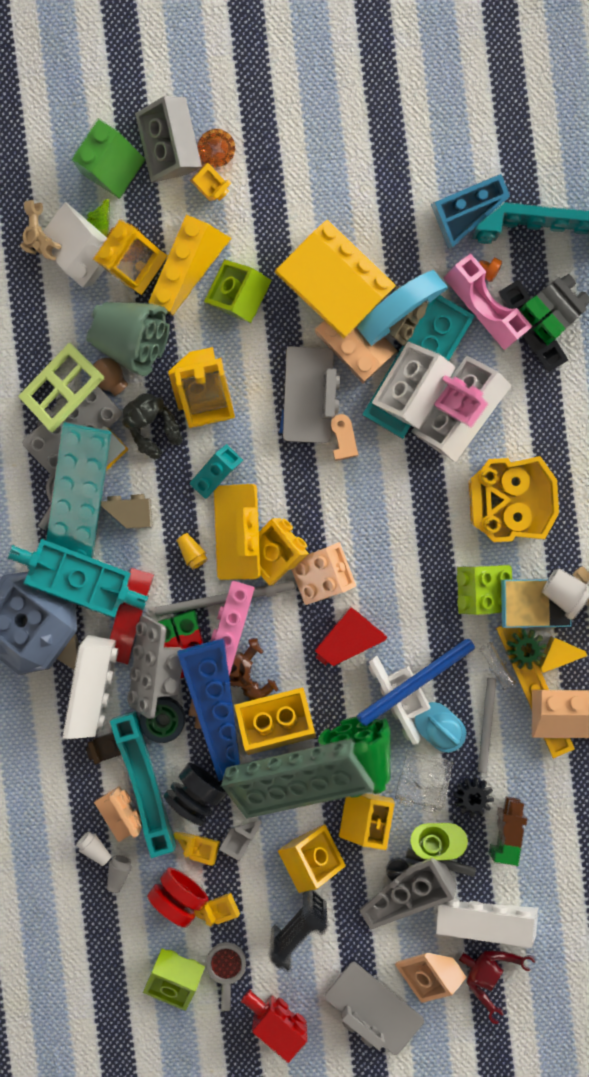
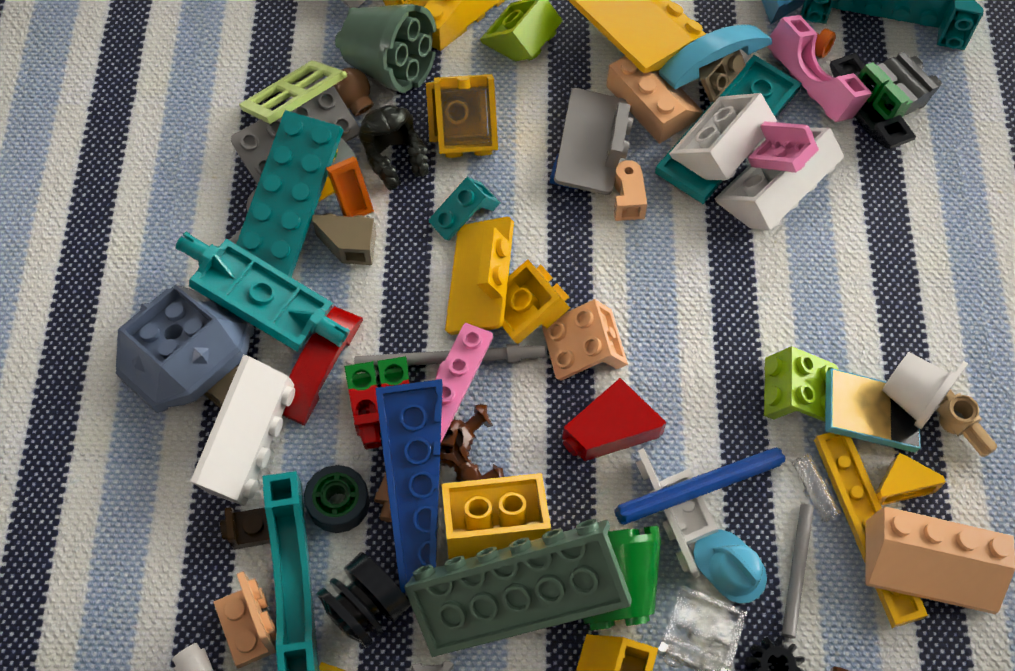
camera: 10 degrees right, 25 degrees down
(125, 474) = (350, 188): none -> orange tile
(155, 668) = (342, 418): light grey bracket -> none
(191, 551) = (417, 294): yellow cone -> none
(519, 654) = (872, 460): dark green gear -> none
(533, 498) = (820, 281): yellow brick -> none

